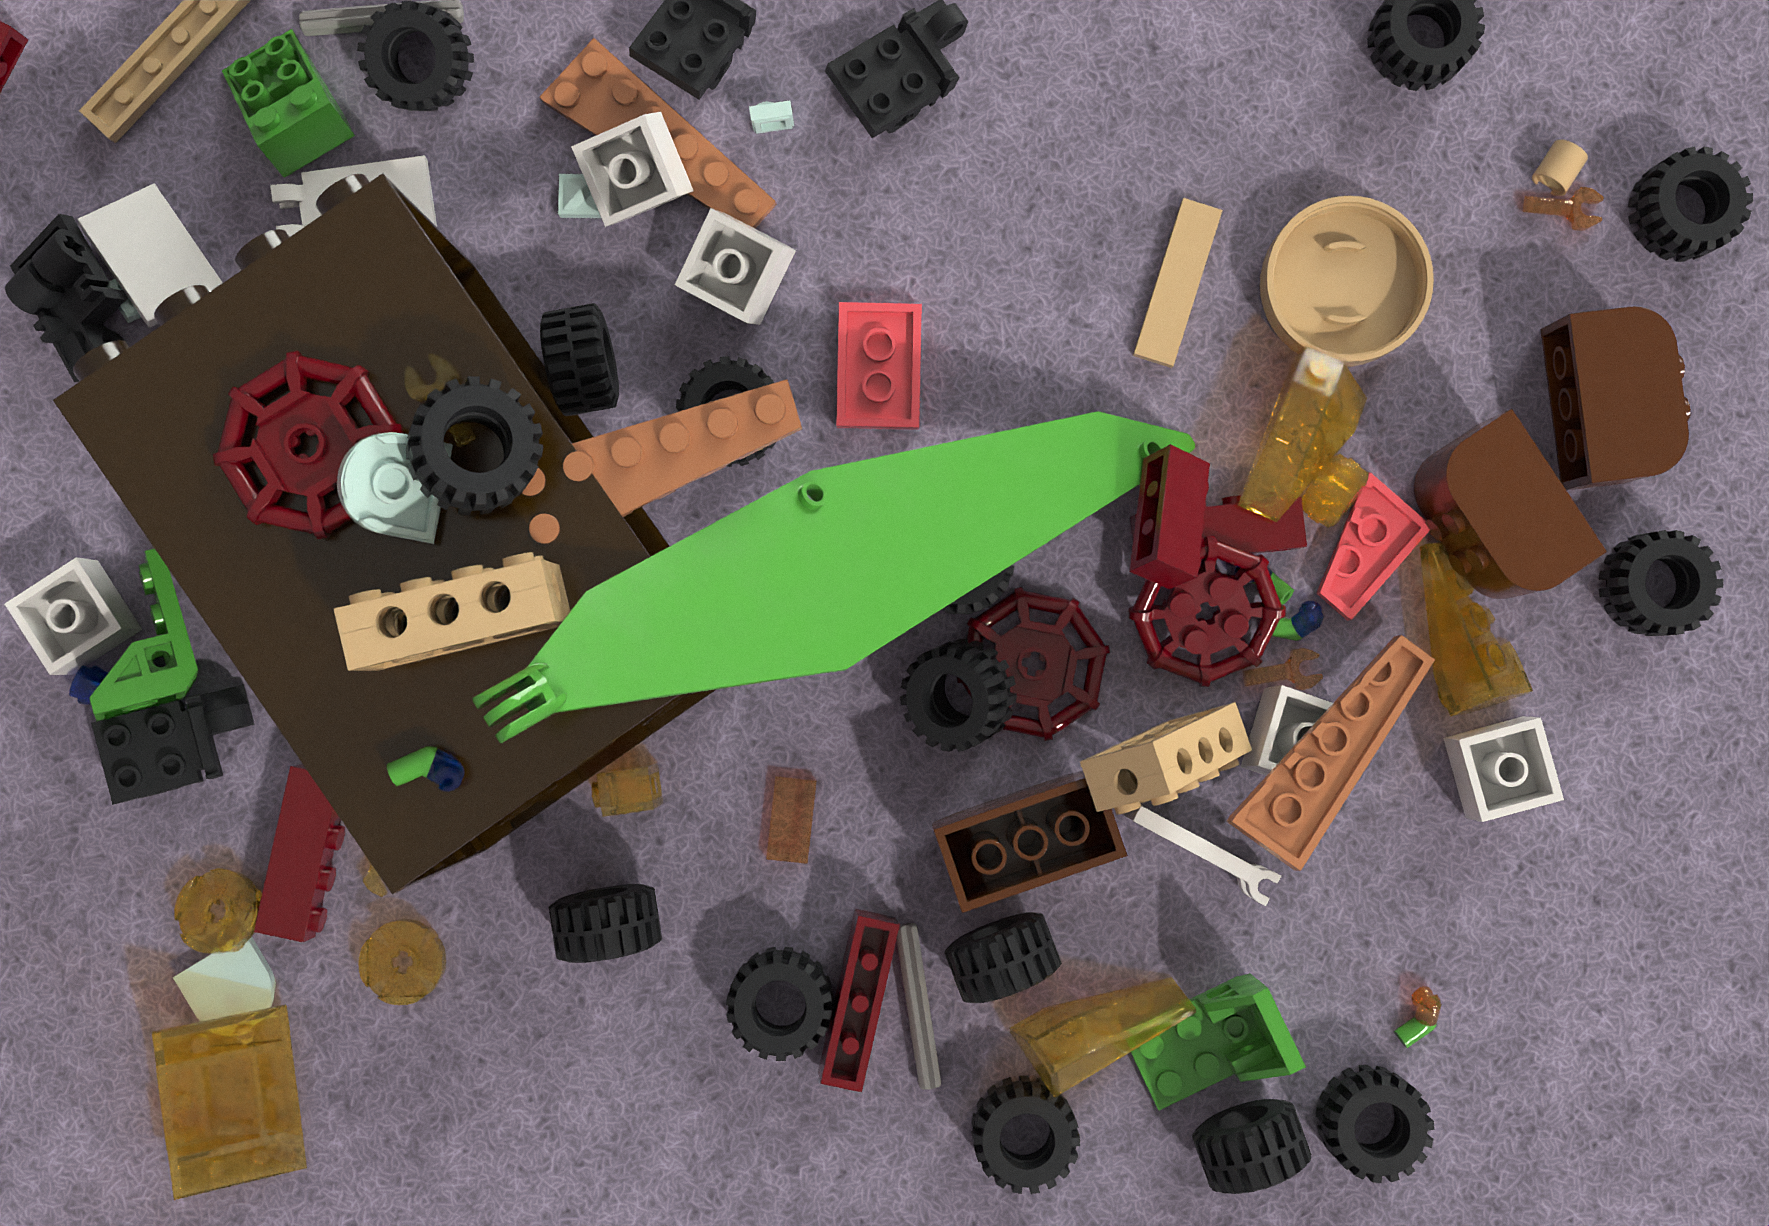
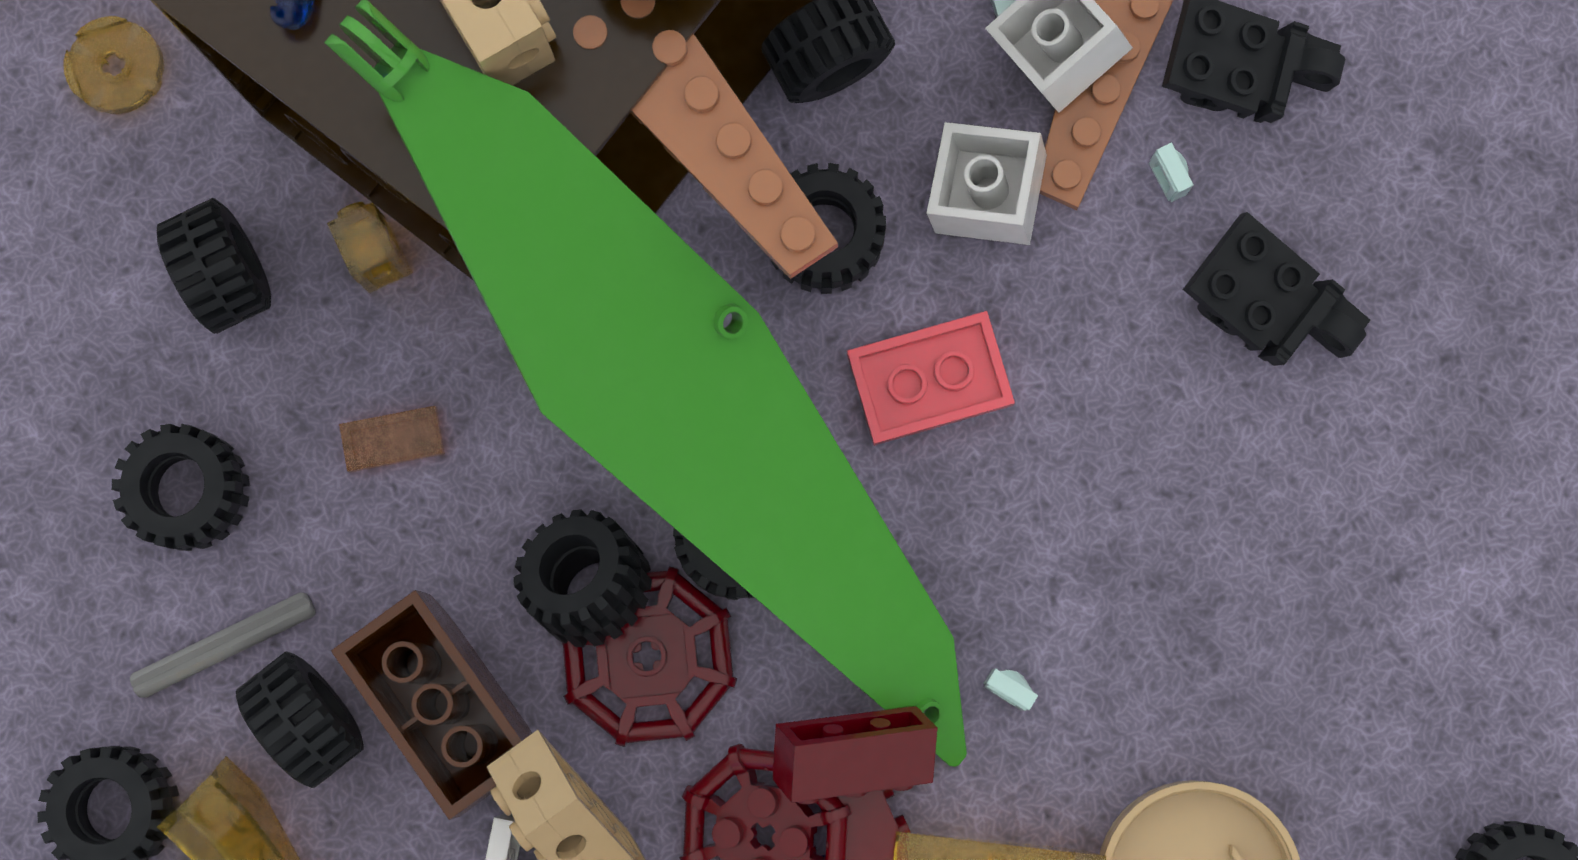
camera: 80 degrees right, 5 degrees down
(858, 1000) = (208, 573): dark red brick -> none
(1149, 379) = (1011, 687): none -> light aqua tile
(1177, 282) = (1135, 688): tan tile -> none

